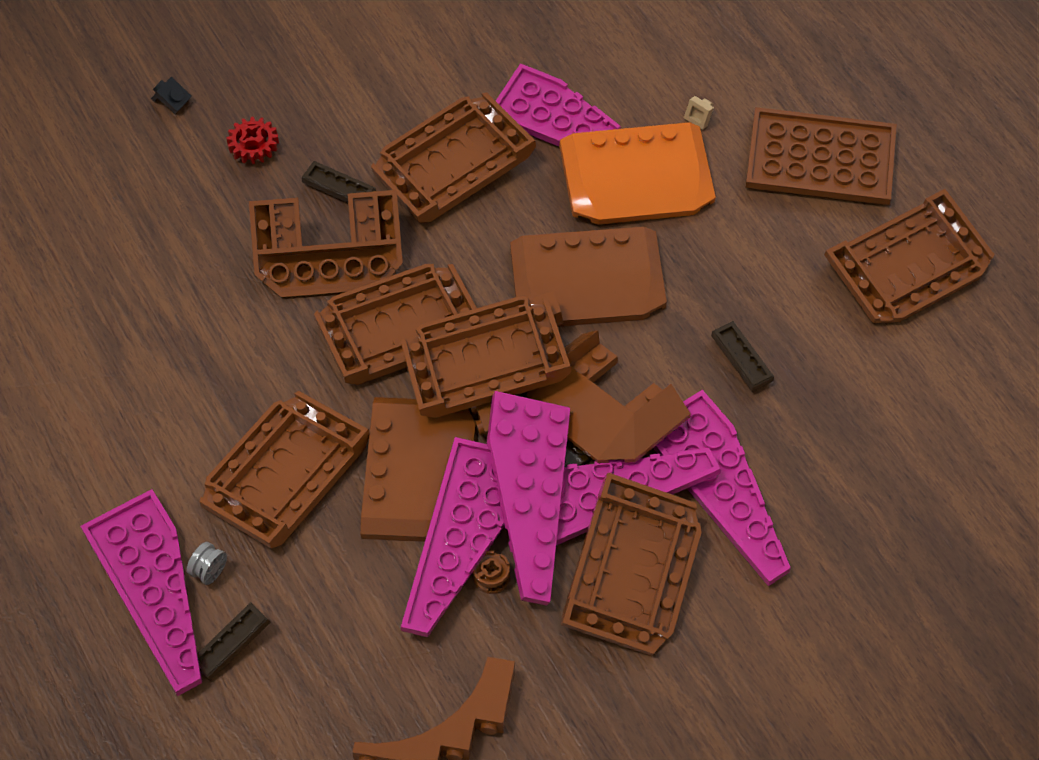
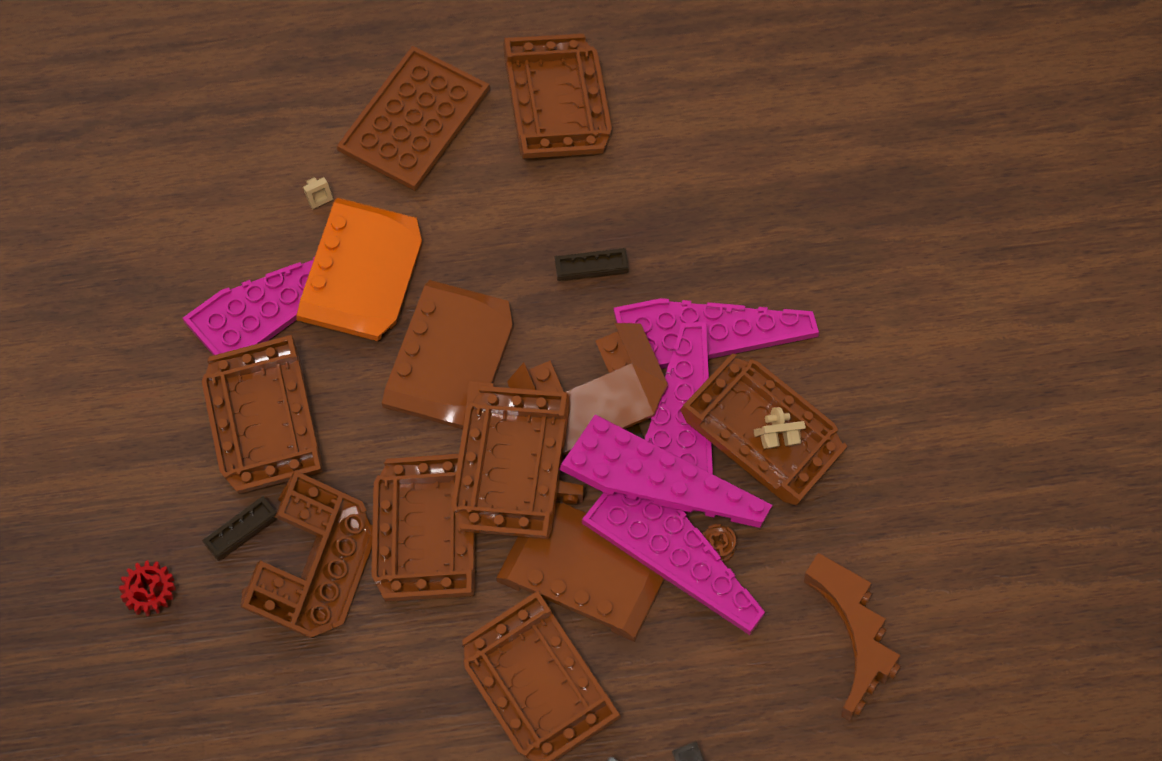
camera: 65 degrees left, 5 degrees up
(171, 94) = (46, 647): black bracket -> none
(622, 567) = (770, 433): none -> tan hips

